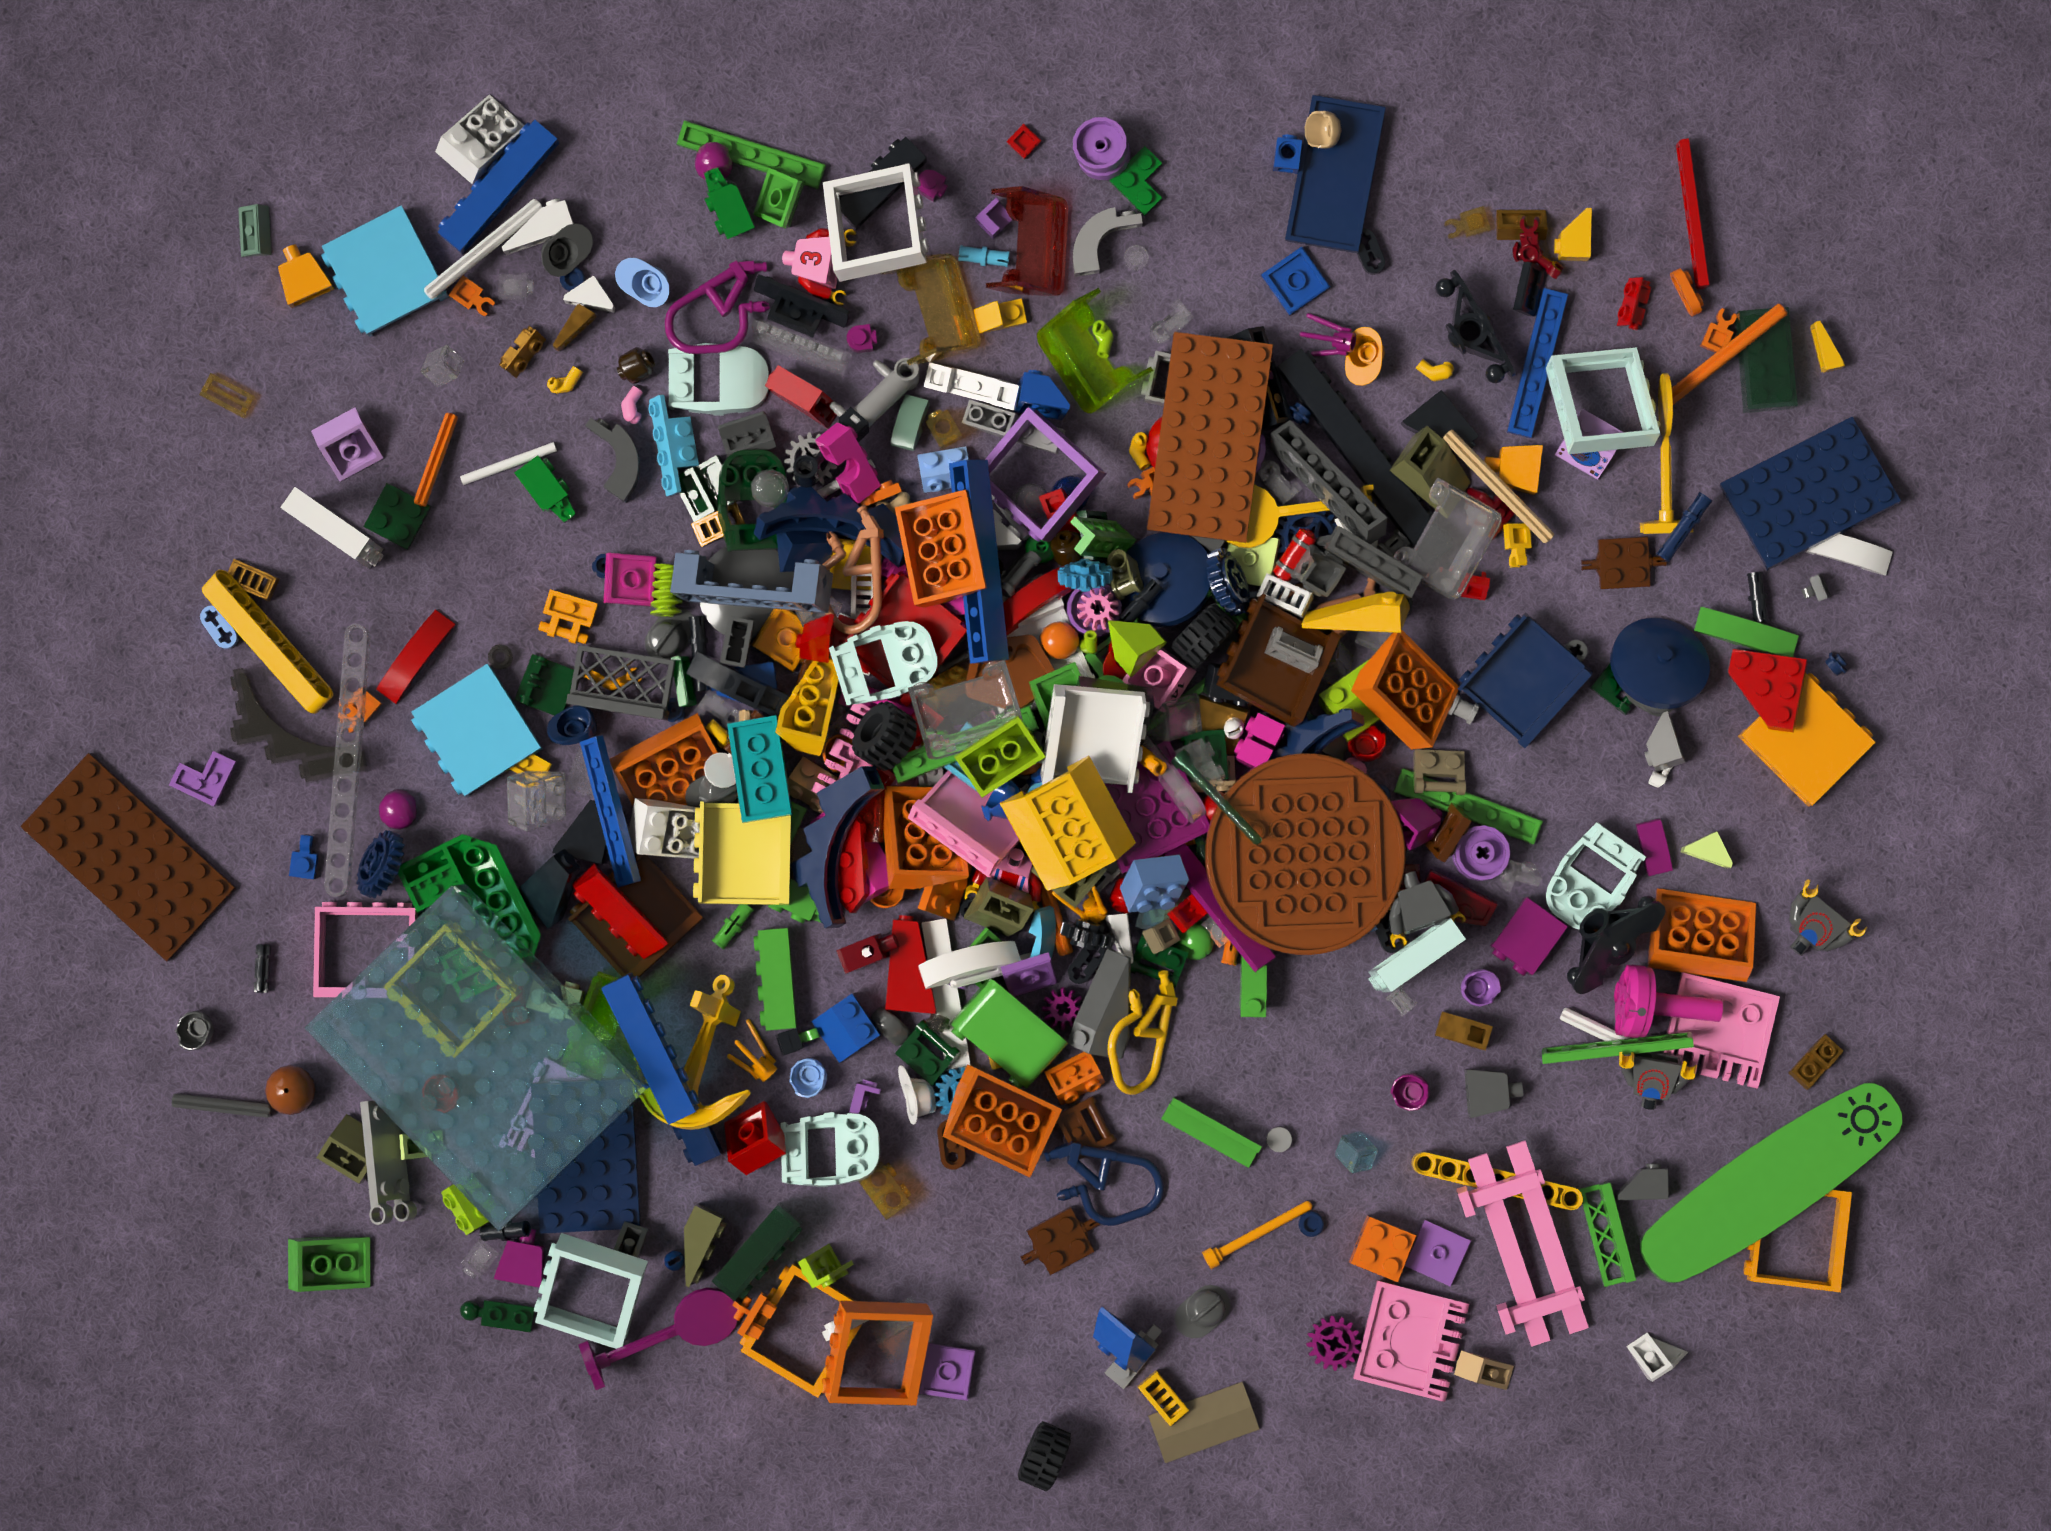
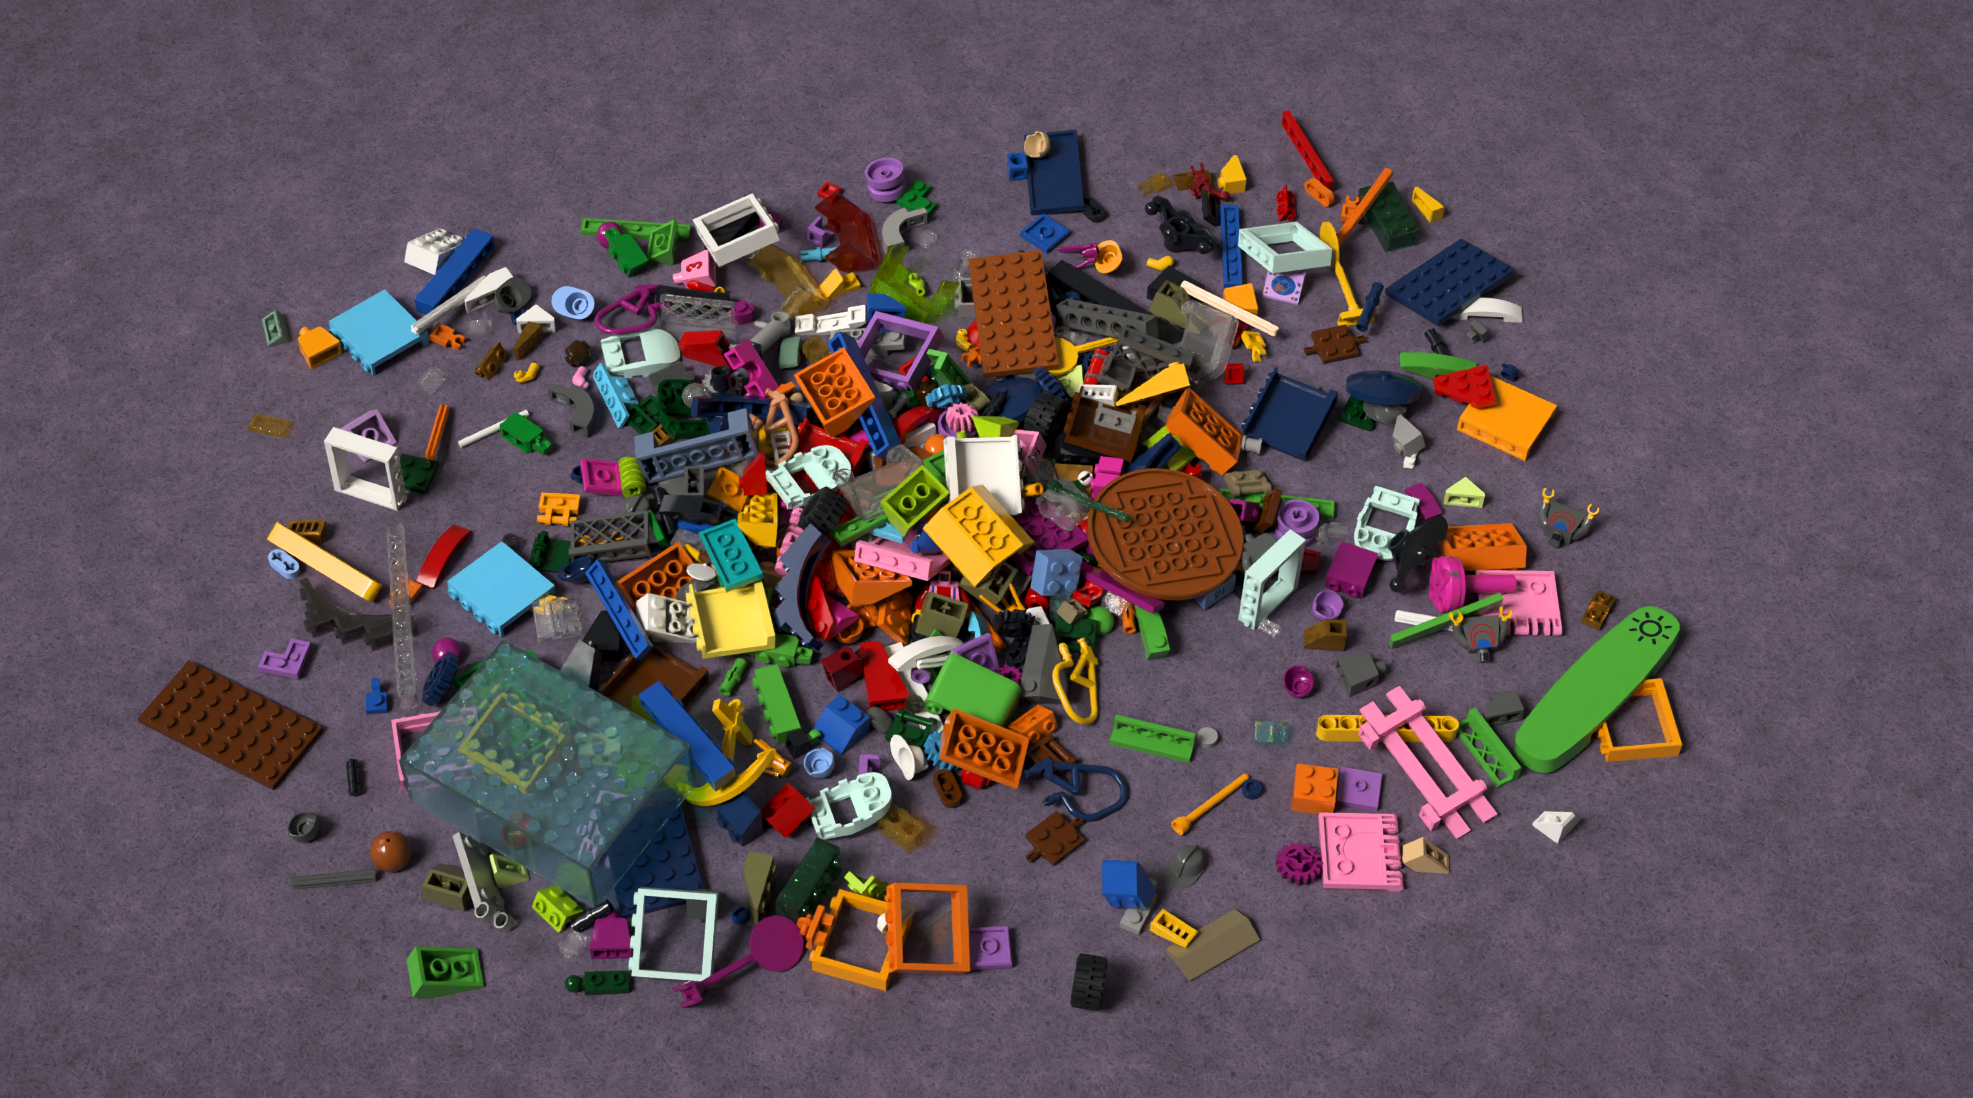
camera: 10 degrees left, 35 degrees down
(619, 912) = (637, 665): red slope -> none

